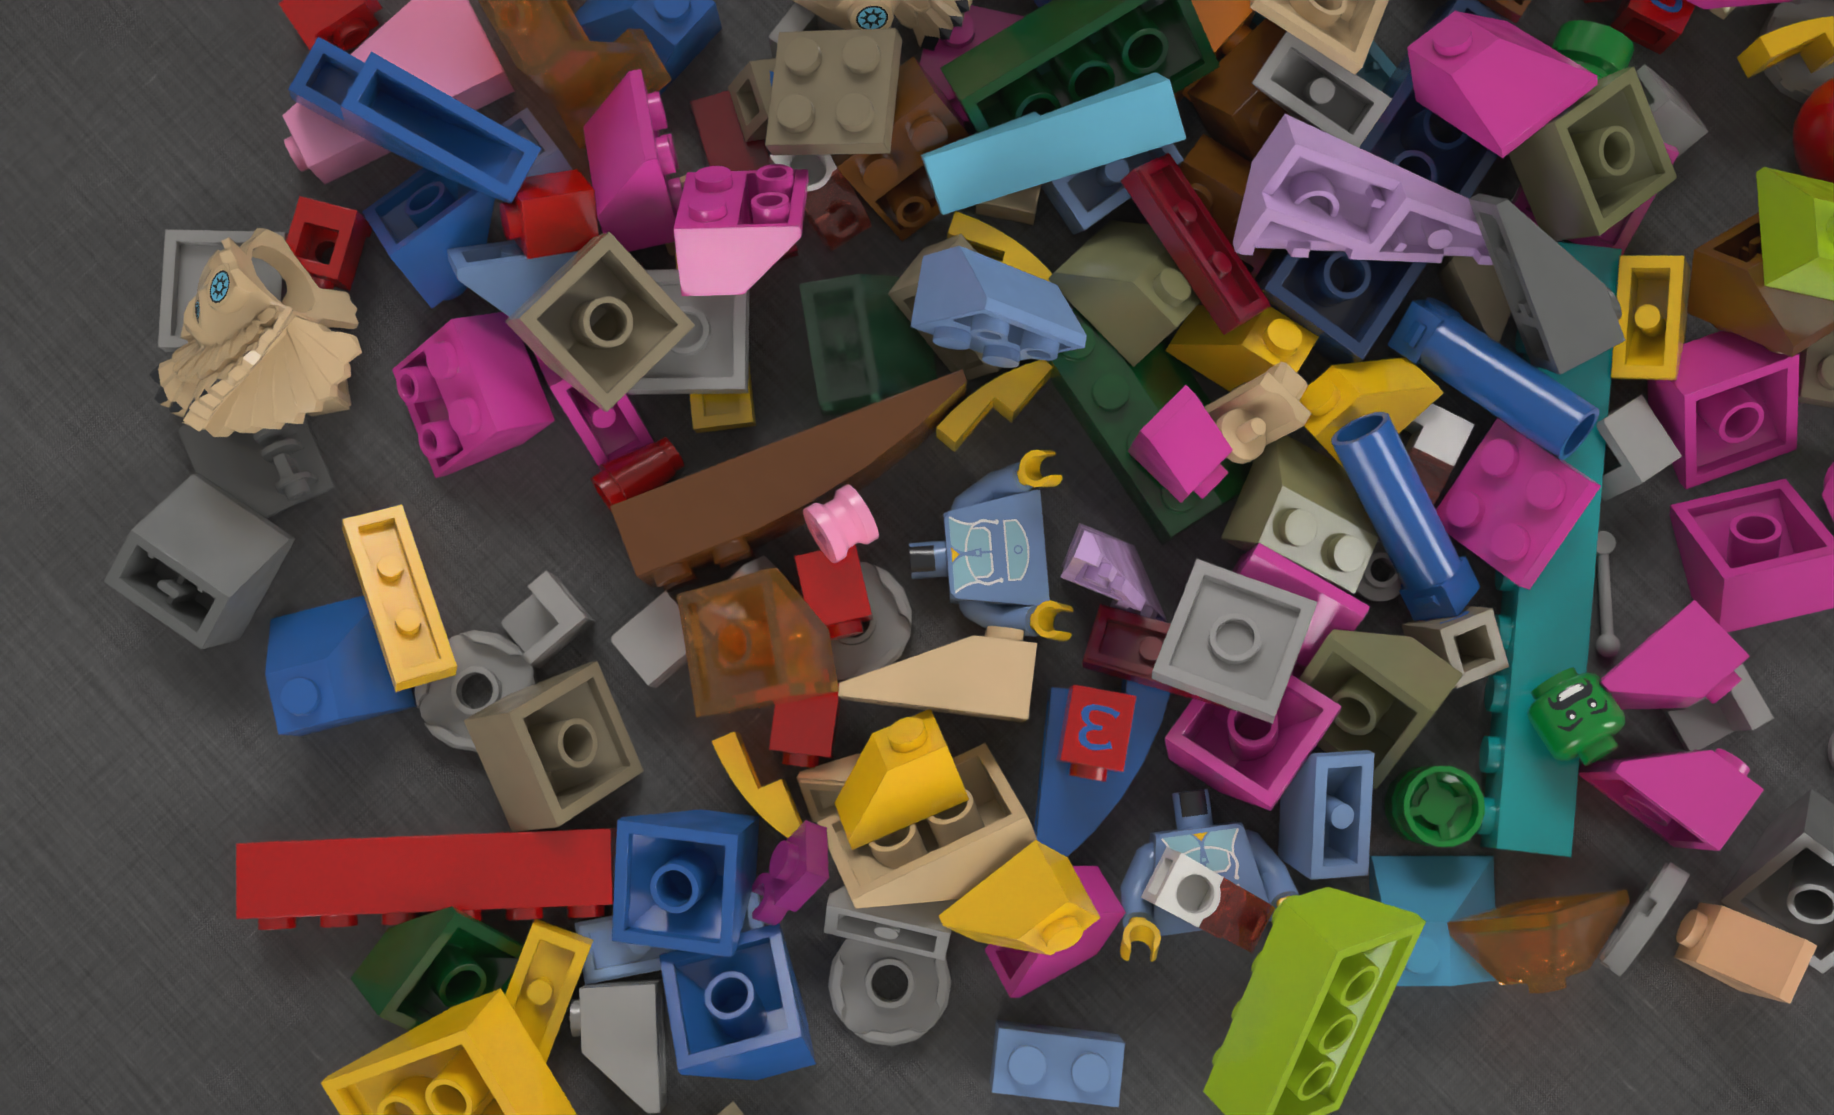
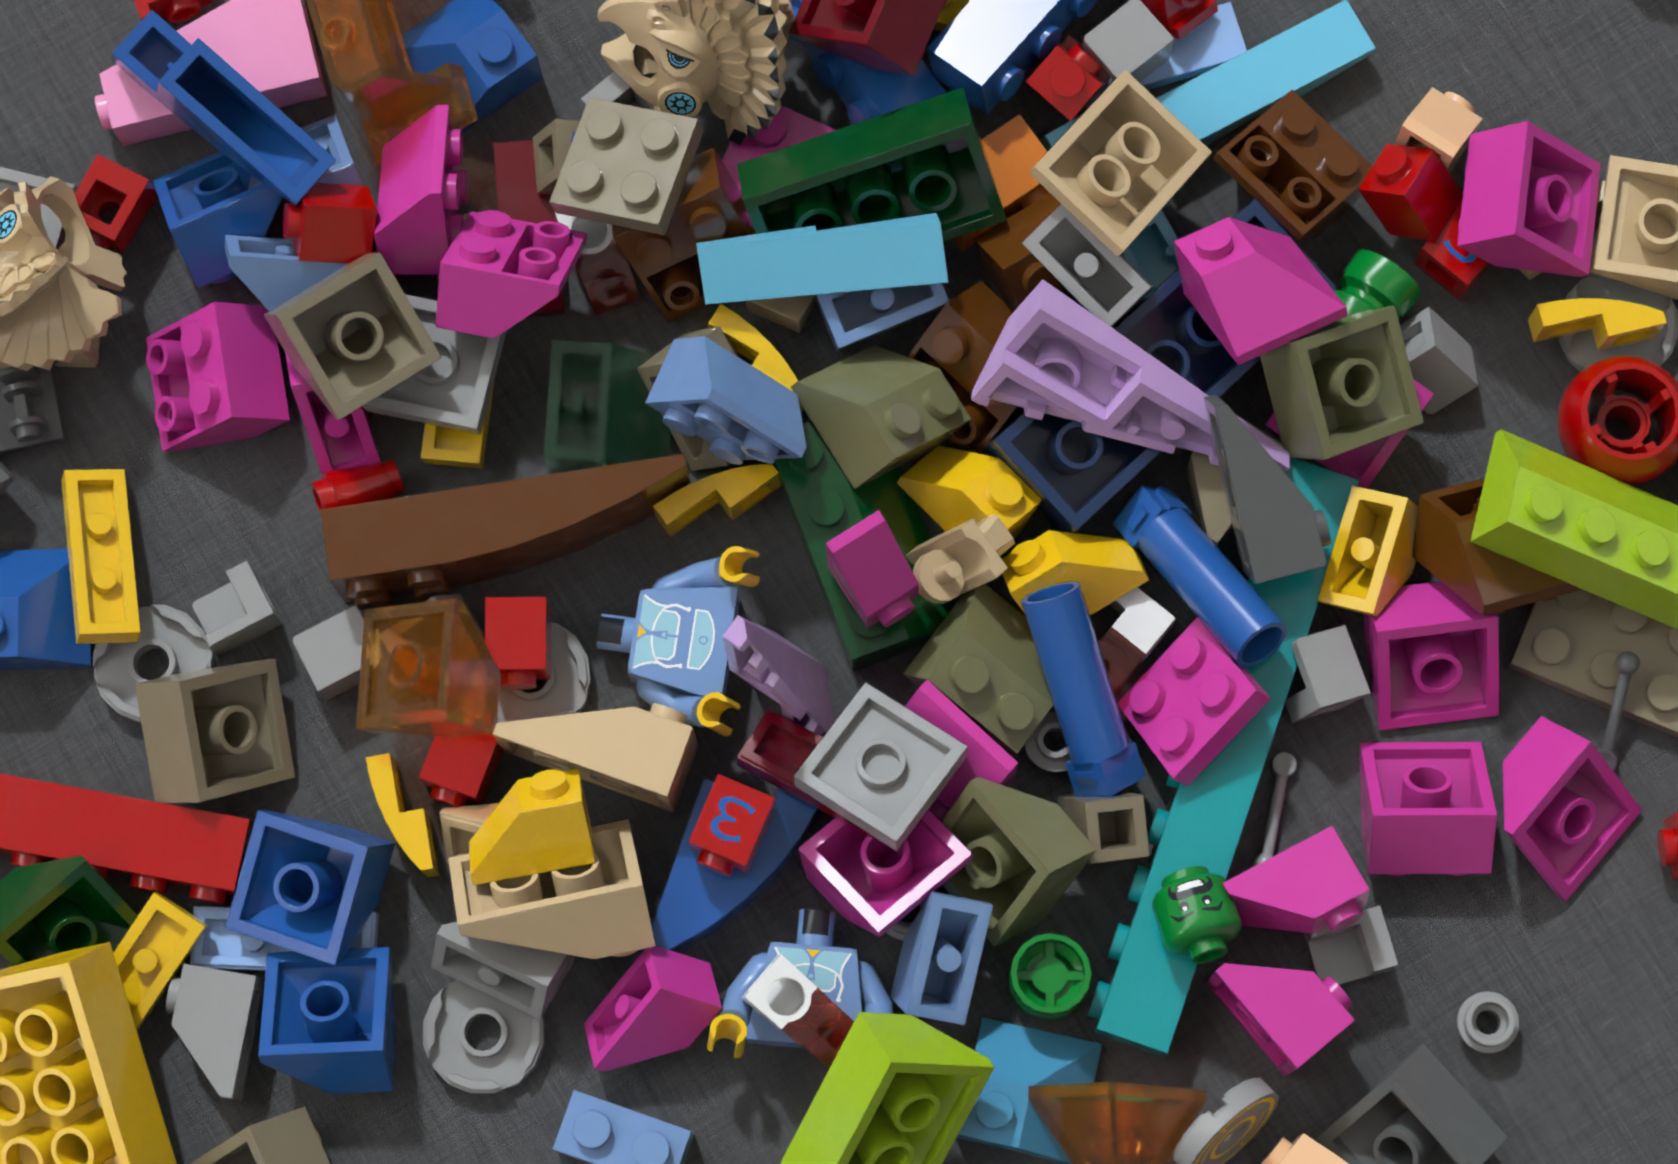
camera: 15 degrees right, 5 degrees down
(795, 874) = (415, 897): magenta plate -> none
(841, 523) = (535, 574): bright pink wheel -> none
(1026, 904) = (621, 971): yellow slope -> none
(1195, 243) = (937, 383): dark red tile -> none

